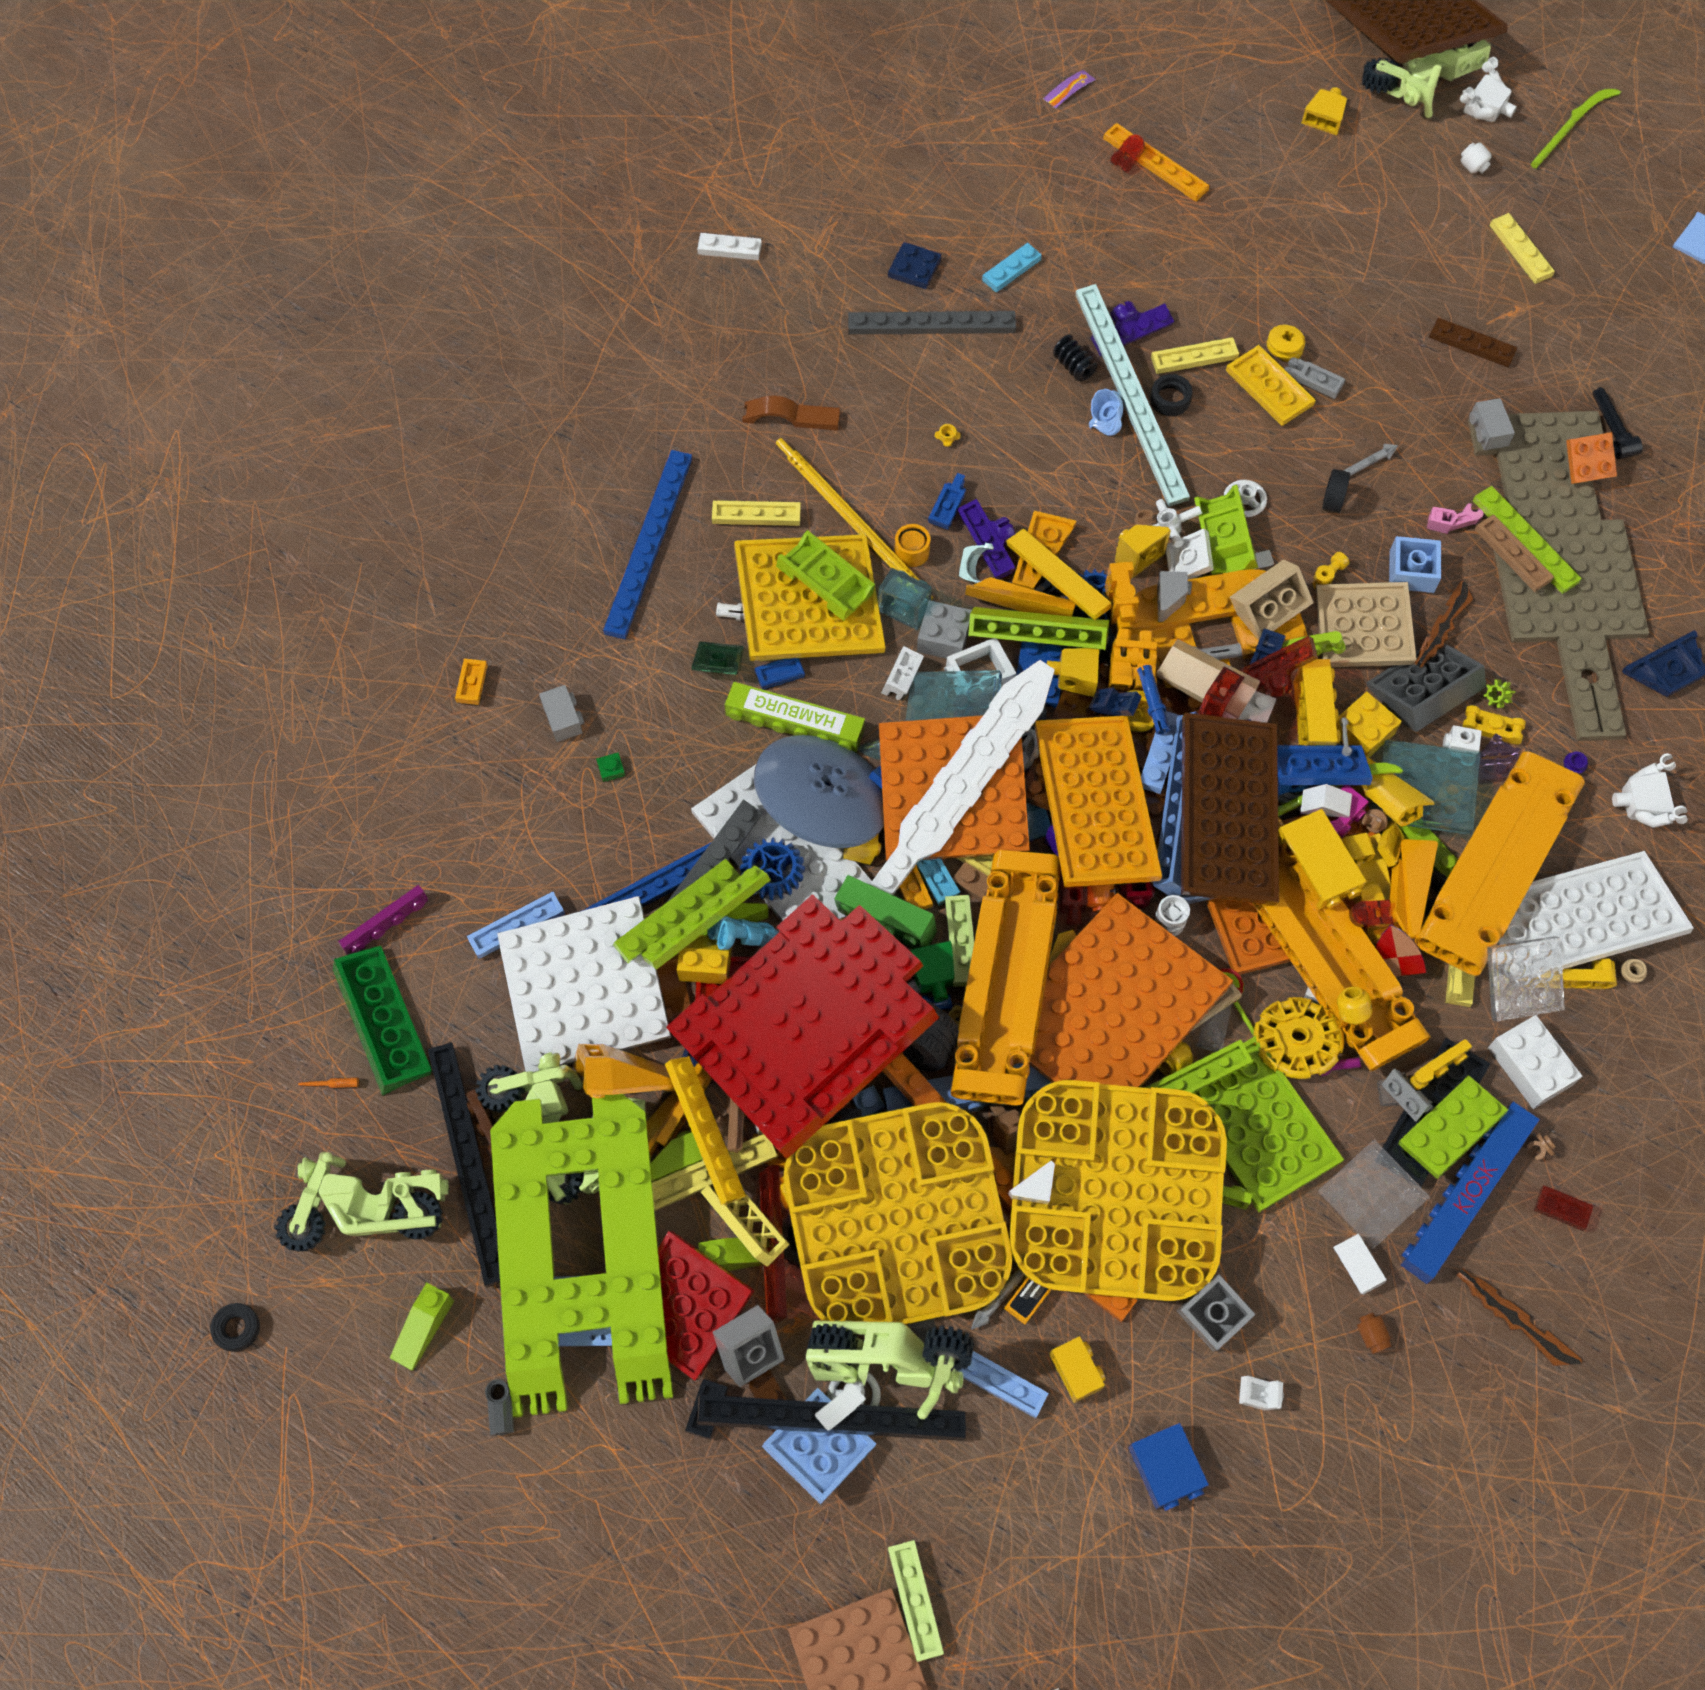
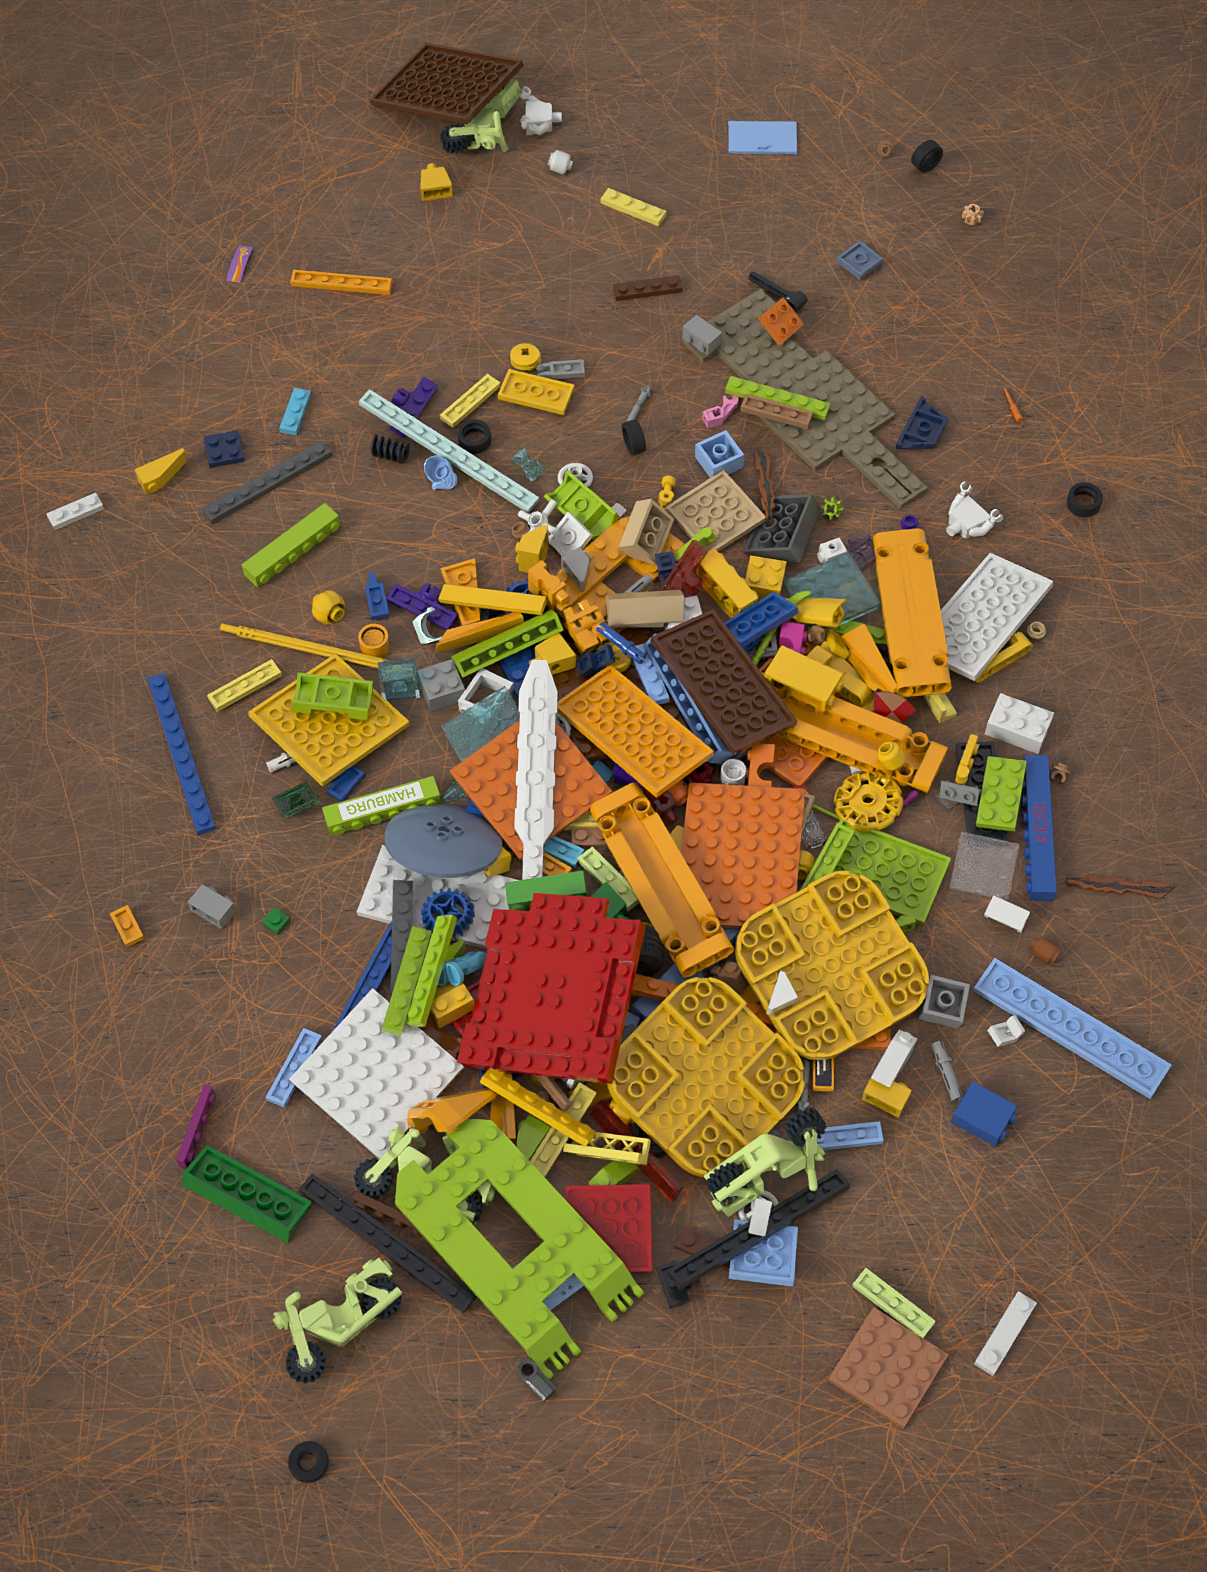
camera: 35 degrees left, 5 degrees down
(334, 1083) = (247, 1257): orange piece -> none
(421, 1325) = (439, 1368): lime slope -> none
(748, 1345) = (672, 1222): light grey brick -> none
(799, 415) = (222, 600): dark orange piece -> none
(833, 253) = (158, 472): none -> yellow slope
(897, 481) = (328, 605): none -> yellow plant
(902, 673) = (434, 730): white hinge -> none
(906, 399) = (291, 545): none -> lime brick
(947, 429) = (339, 548): yellow plate -> none
(1112, 1337) = (894, 1058): none -> white slope
(1132, 146) = (318, 280): clear red plate -> none
(1163, 1391) = (944, 1062): none -> light grey pin
(1204, 462) = (531, 469): none -> clear light blue leg
(1213, 915) = (760, 757): none -> orange arch
(1214, 703) = (664, 620): clear red torso -> none
(1329, 799) = (776, 638): white slope -> none
(1340, 1443) = (1072, 1028): none -> light blue plate
(1346, 751) = (768, 600): light grey hinge -> none
(1364, 914) = (855, 696): clear red plate -> none
(1494, 723) = (842, 529): yellow plate -> none
(1526, 978) = (980, 673): clear plate -> none
(1563, 1208) = (1099, 801): clear red plate -> none
(1576, 115) = (603, 109): lime piece -> none

